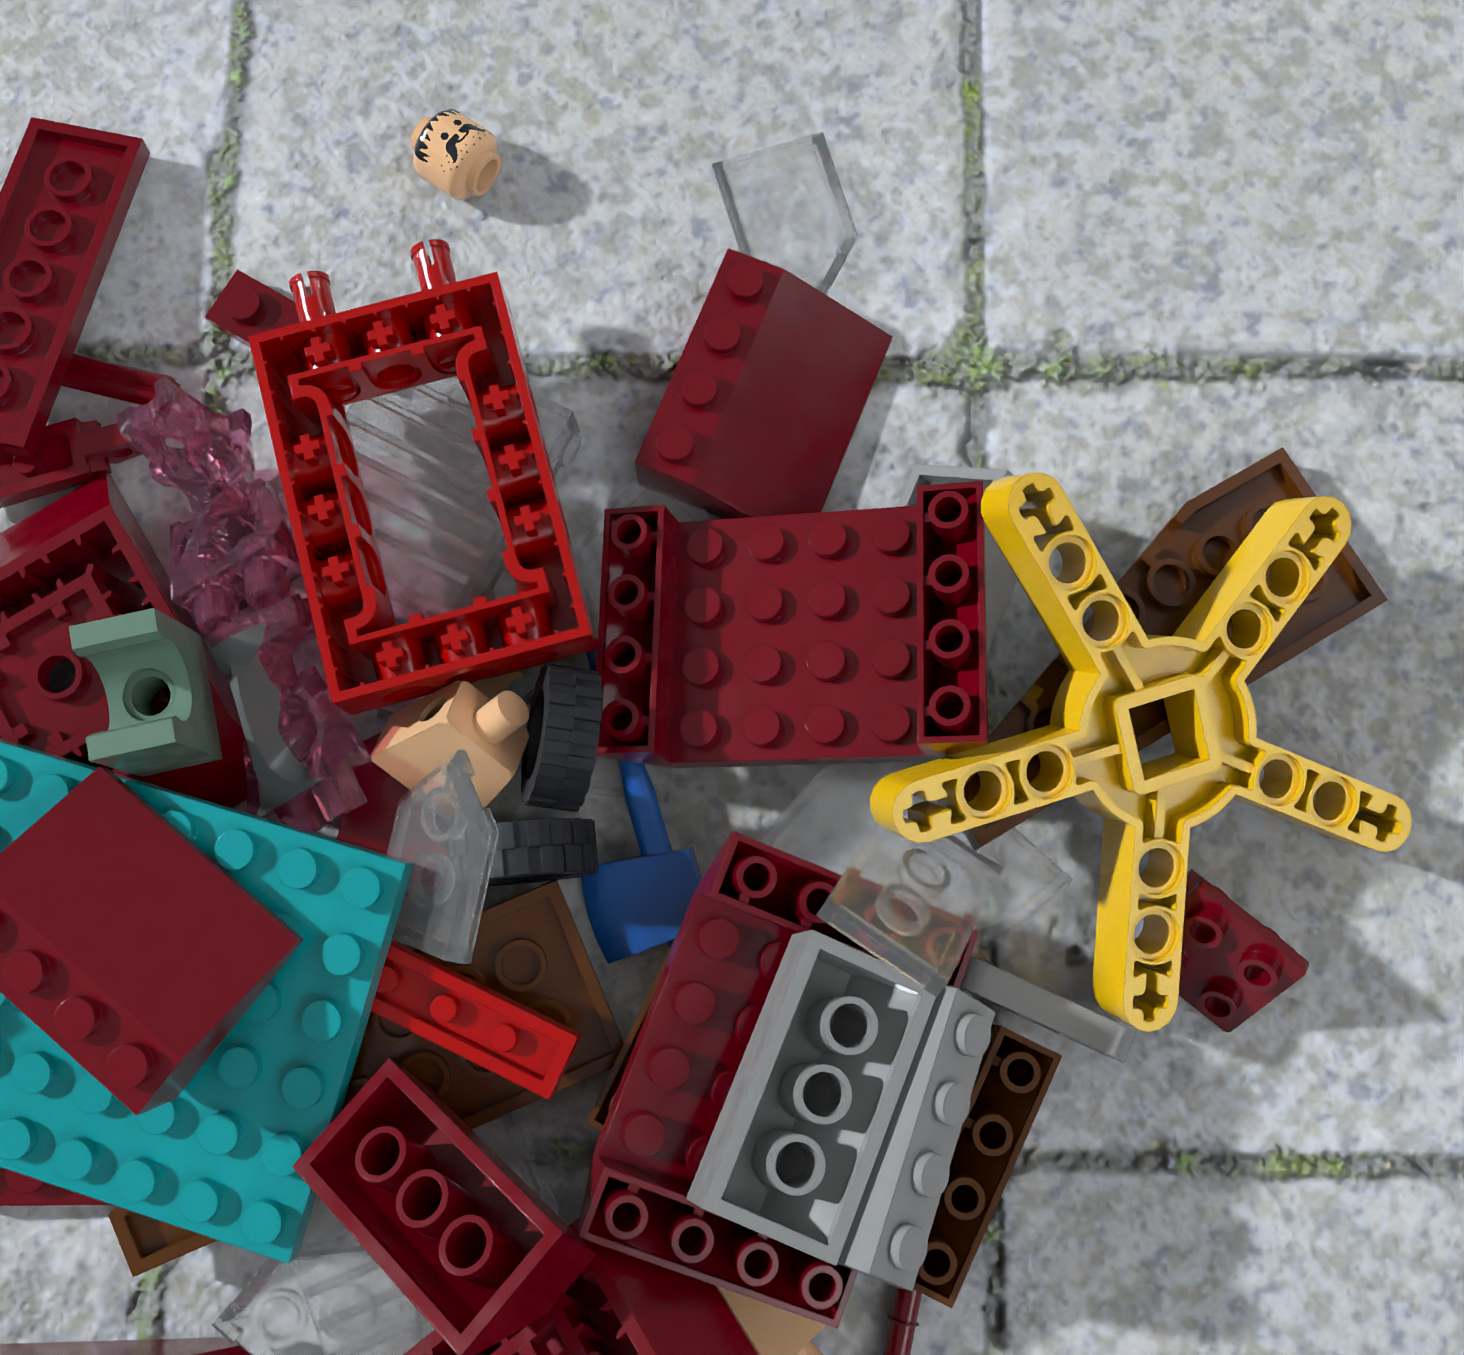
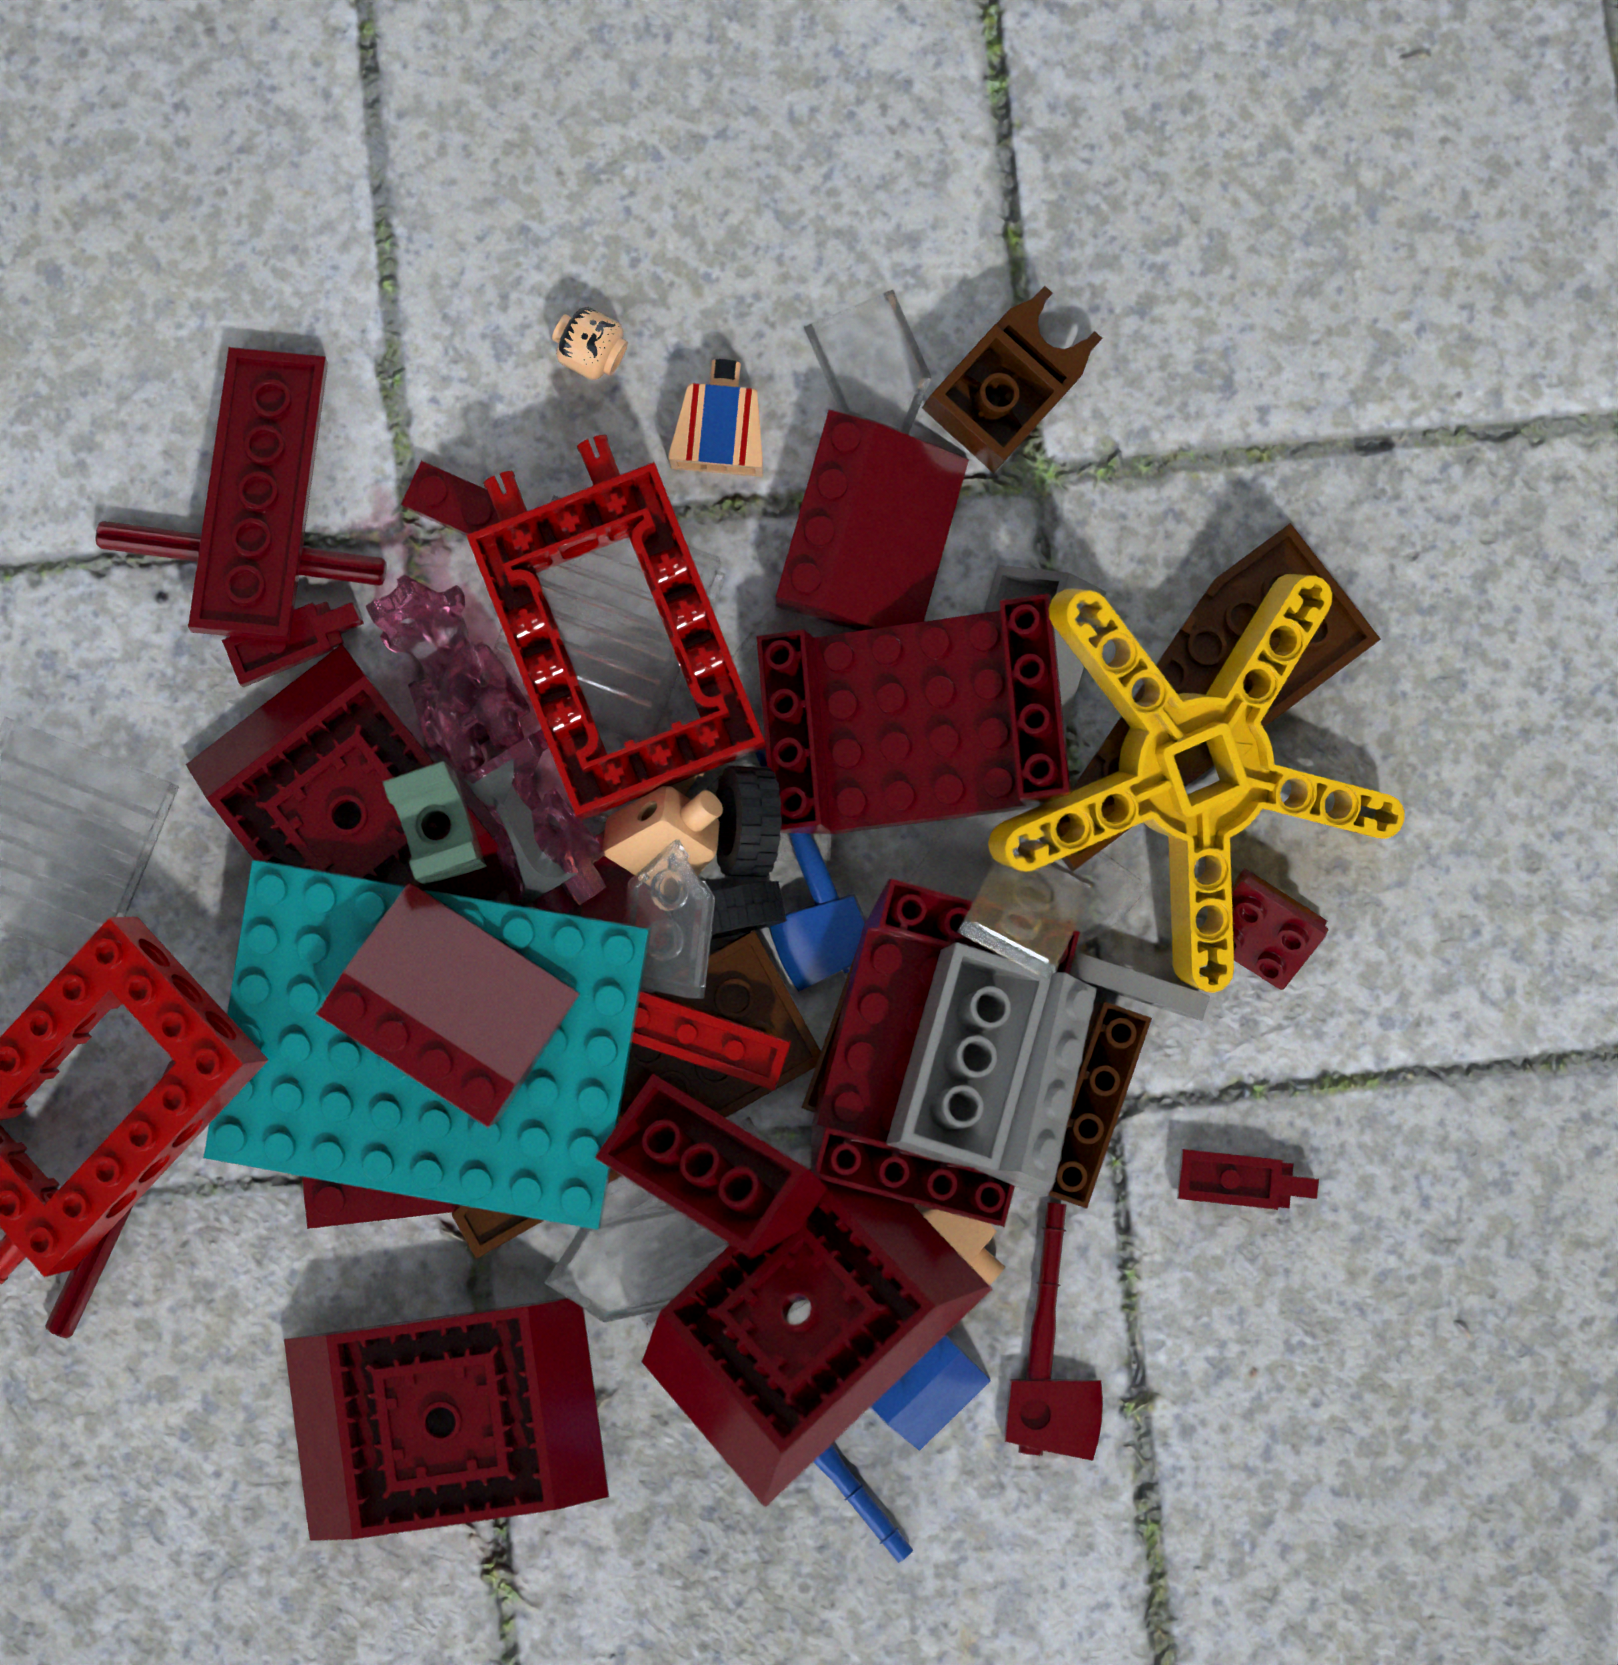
camera: 10 degrees left, 5 degrees up
(594, 265) = (719, 426): none -> torso
(947, 247) = (1018, 368): none -> reddish brown brick
(1158, 1285) = (1241, 1180): none -> dark red hinge

